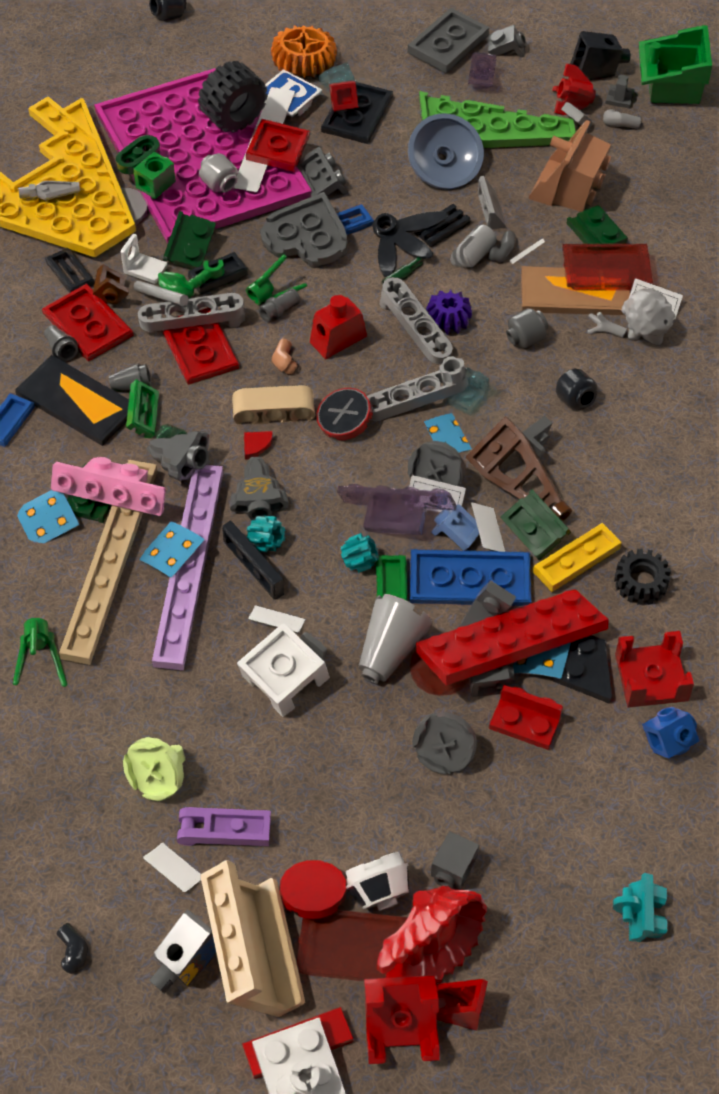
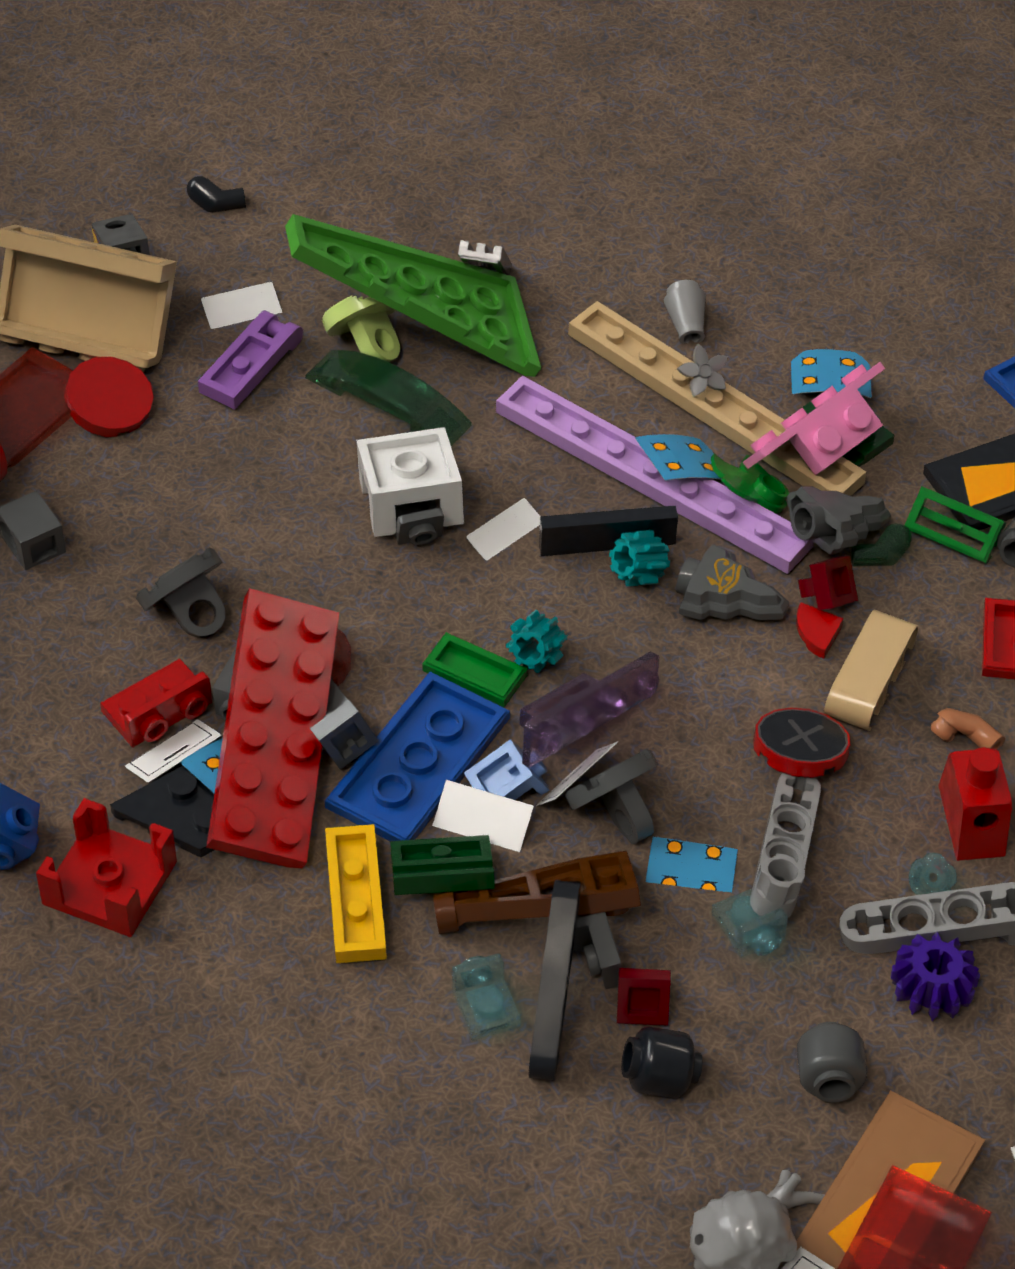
camera: 120 degrees right, 5 degrees down
(36, 605) = (687, 309): none -> light grey cone
(36, 637) = (641, 292): green plant -> none
(63, 723) = (496, 262): none -> tile
(101, 560) = (704, 371): none -> light grey plant
(126, 725) = (447, 295): none -> bright green wing
(175, 505) = (752, 484): none -> green plate
(206, 736) = (389, 390): none -> clear green slope
(228, 442) = (830, 583): none -> dark red tile
(379, 881) = (60, 440): white cone -> none
(391, 334) = (921, 870): none -> clear light blue plate
(391, 636) = (381, 611): light grey cone -> none
(542, 409) = (643, 996): none -> dark red tile
(561, 693) = (172, 750): none -> white sticker
(572, 437) = (554, 980): none -> black beam
(593, 475) = (484, 996): none -> clear light blue bracket
(642, 591) = (263, 975): black tyre -> none

